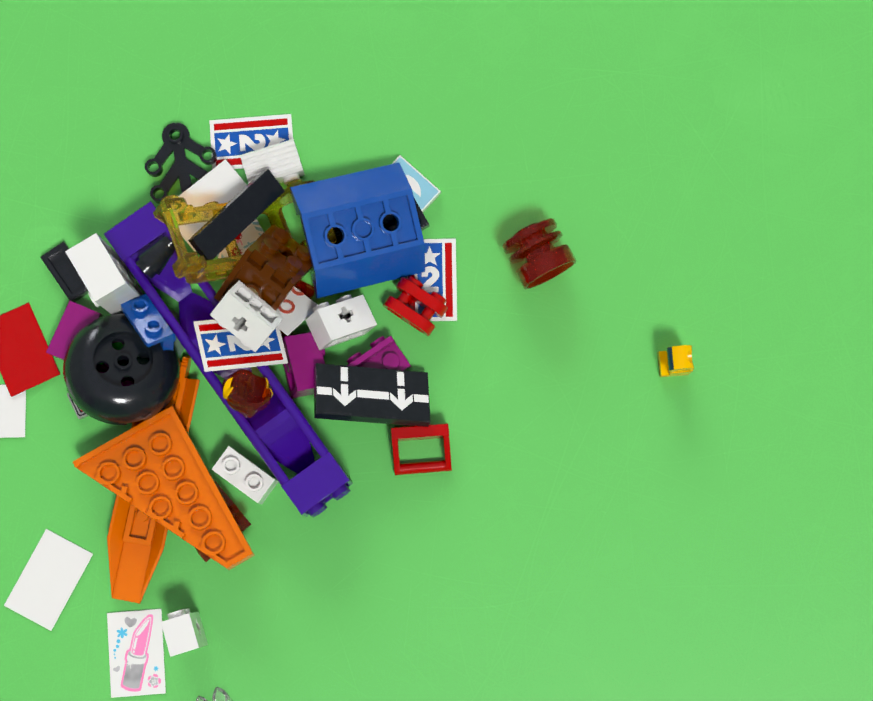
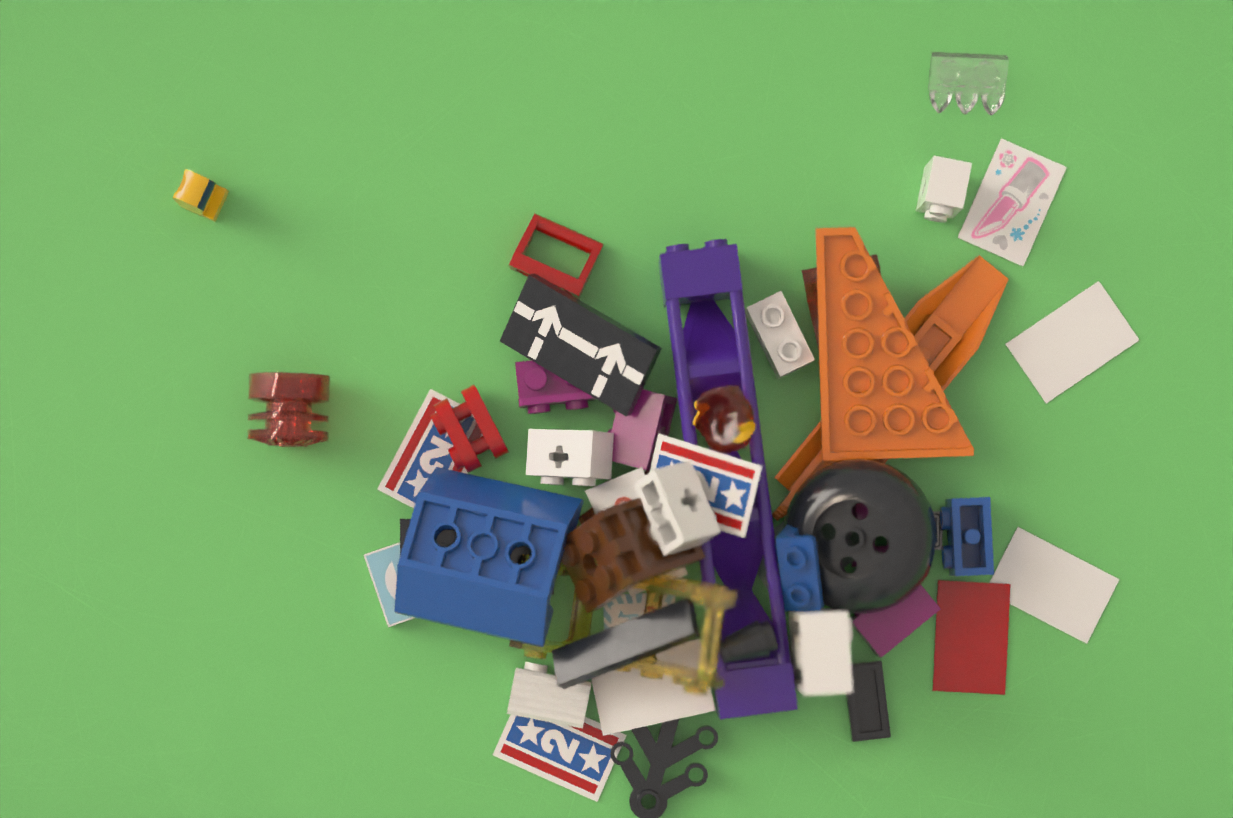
camera: 155 degrees left, 5 degrees up
(51, 410) = (968, 536): none -> blue brick

